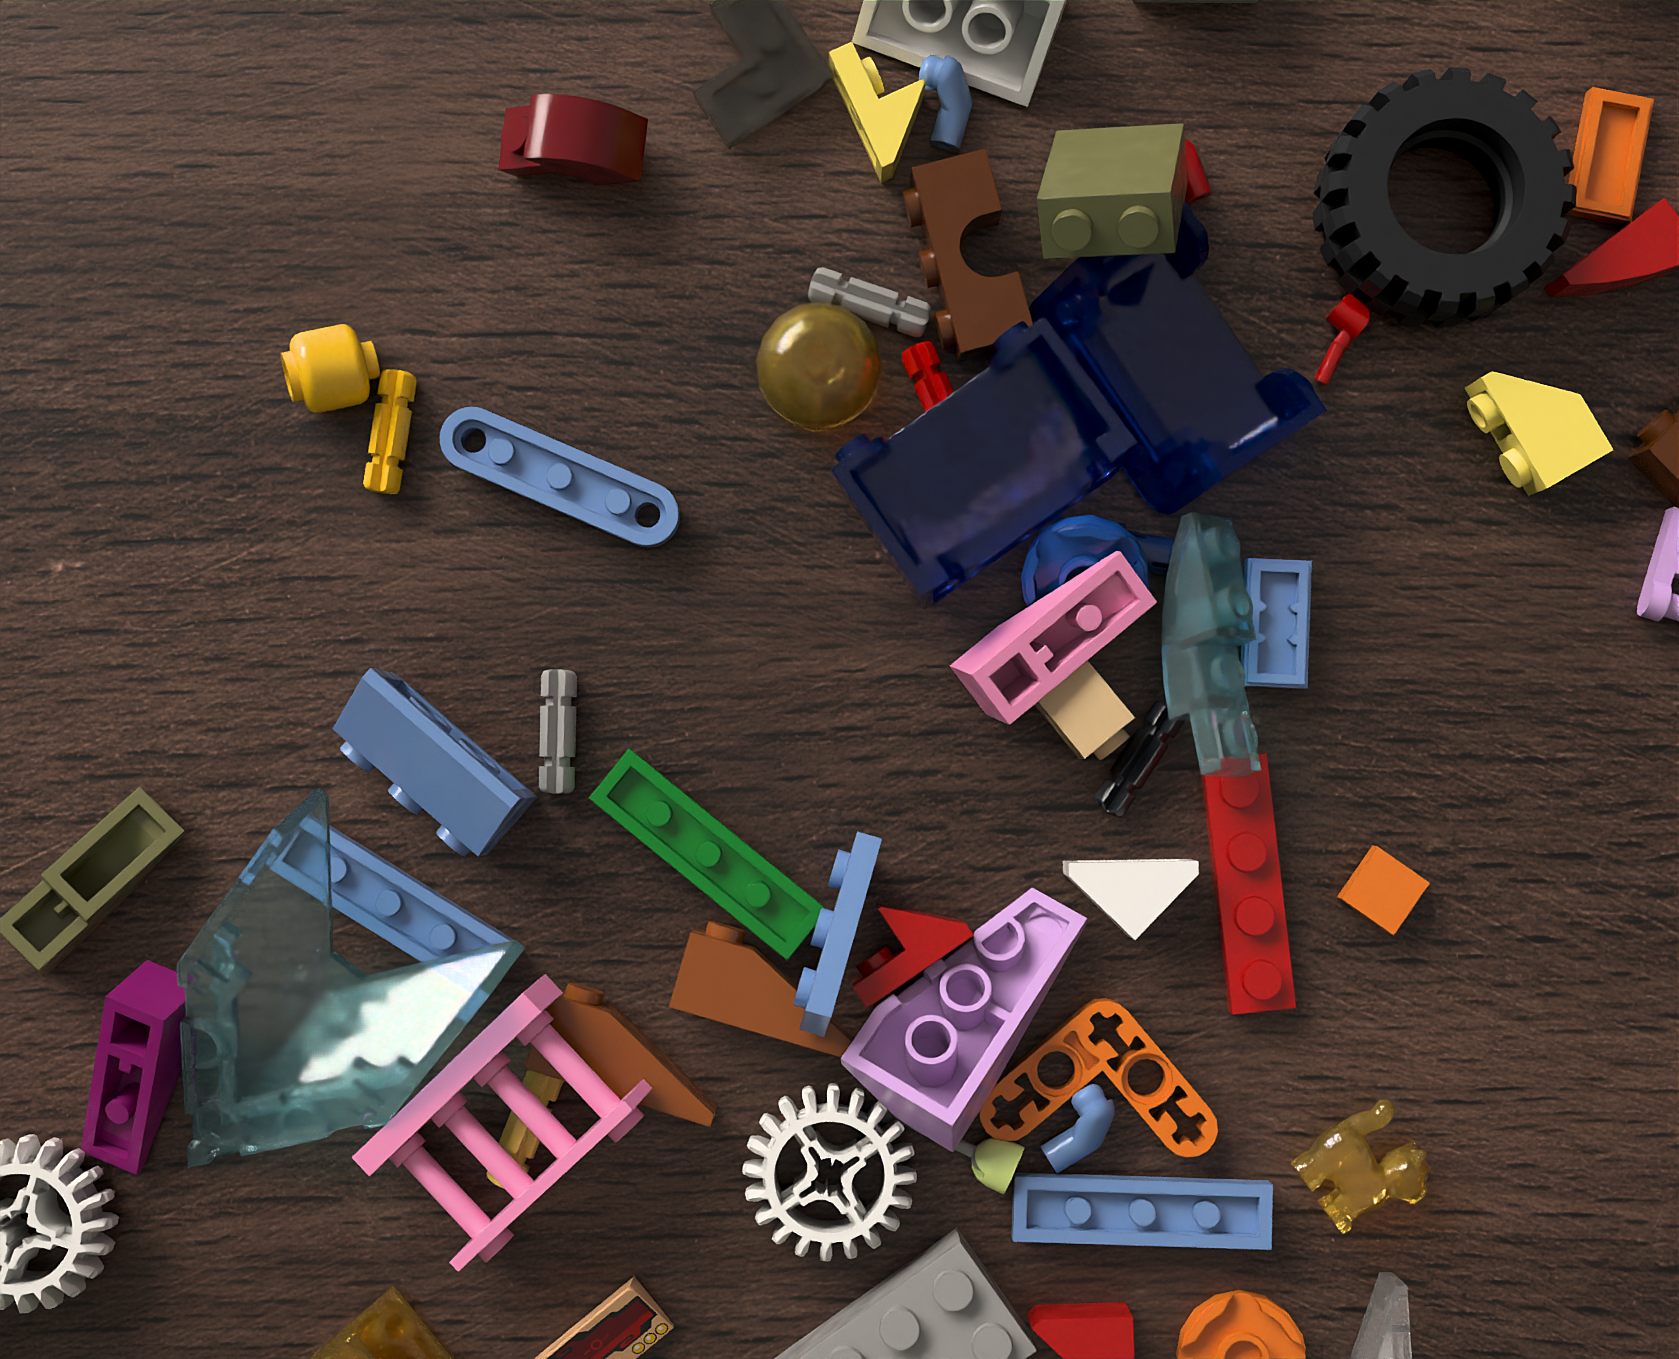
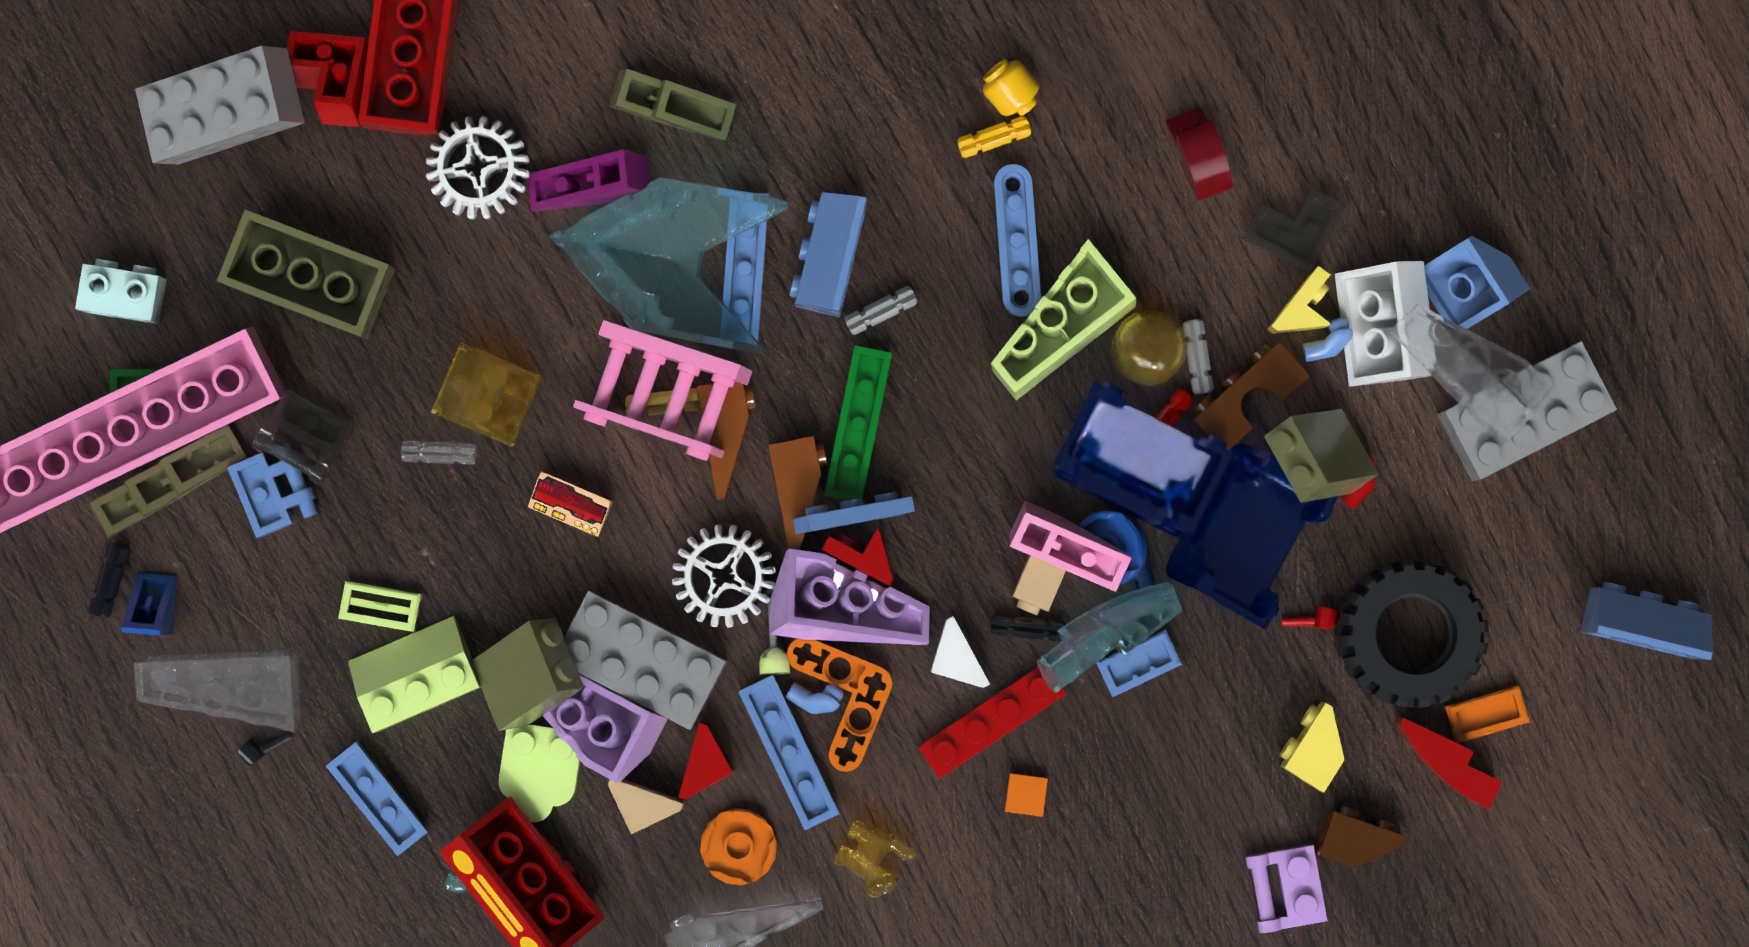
camera: 55 degrees right, 0 degrees up
(714, 463) = (1064, 321): none -> yellowish green wedge

